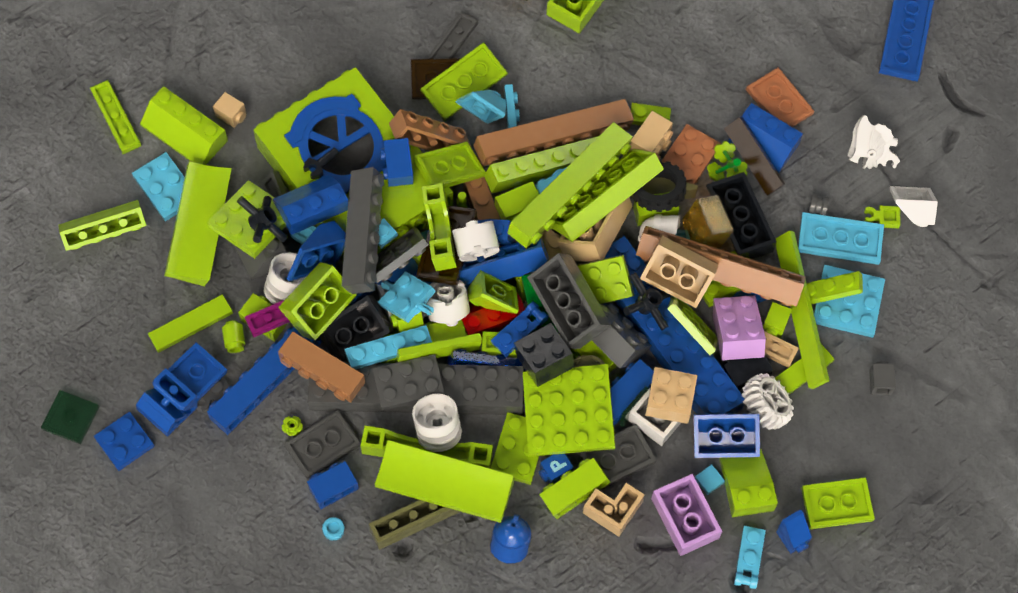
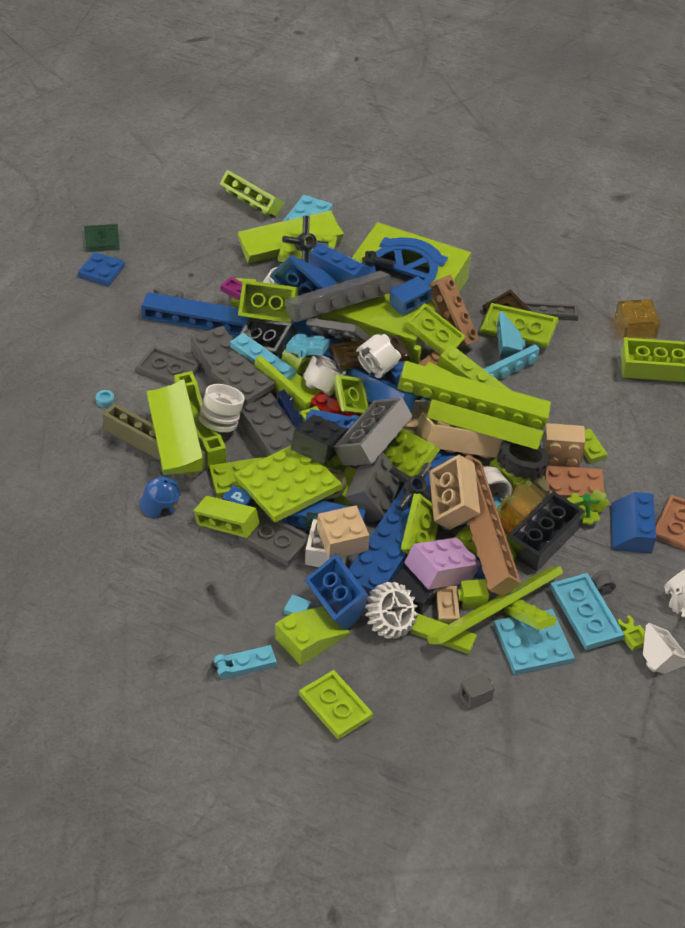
camera: 60 degrees right, 20 degrees down
(115, 117) = (339, 173): lime tile -> none
(180, 389) = (153, 271): blue piece -> none
(183, 127) = (357, 204): lime slope -> none
(190, 323) = (211, 265): lime tile -> none
(230, 110) = (390, 216): tan brick -> none
(233, 336) = (212, 288): lime brick -> none
(292, 431) = (171, 345): lime plate -> none
(321, 367) = (218, 326): medium nougat brick -> none
(332, 484) = (136, 381): blue brick -> none
(386, 233) = (349, 314): medium azure plate -> none
(439, 226) = (392, 324): lime arch -> none
(551, 132) = (517, 379): medium nougat brick -> none
(614, 513) = (227, 552): tan brick -> none
(686, 514) = (251, 597): lavender brick -> none
(754, 156) = (609, 519): dark brown tile -> none
(794, 532) = (285, 676): blue slope -> none

